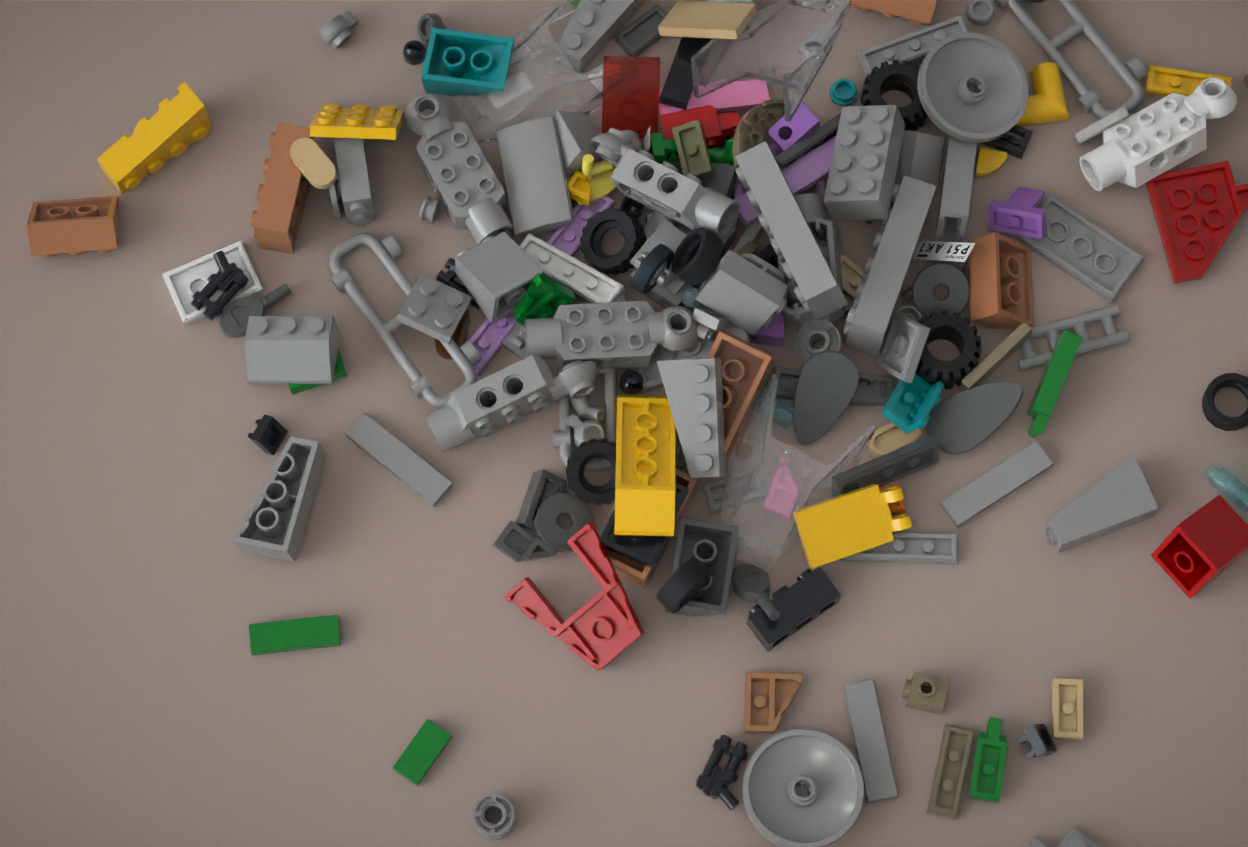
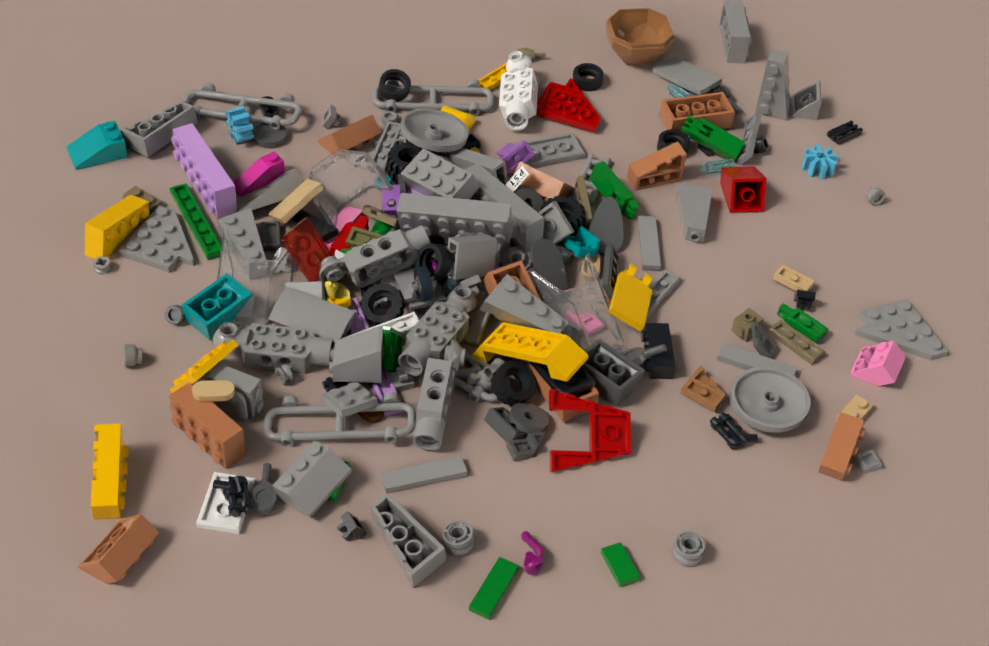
camera: 60 degrees left, 25 degrees down
(335, 566) = (458, 537): none -> light grey wheel
(353, 661) = (532, 562): none -> magenta piece
(412, 56) = (180, 331): black hinge -> none
(631, 382) = (468, 343): black hinge -> none
(683, 585) = (622, 368): black tyre -> none
(905, 729) = (762, 341): none -> dark grey tile
(1101, 125) = (493, 107): light grey tile -> none
(1147, 411) = (658, 168): none -> nougat wedge

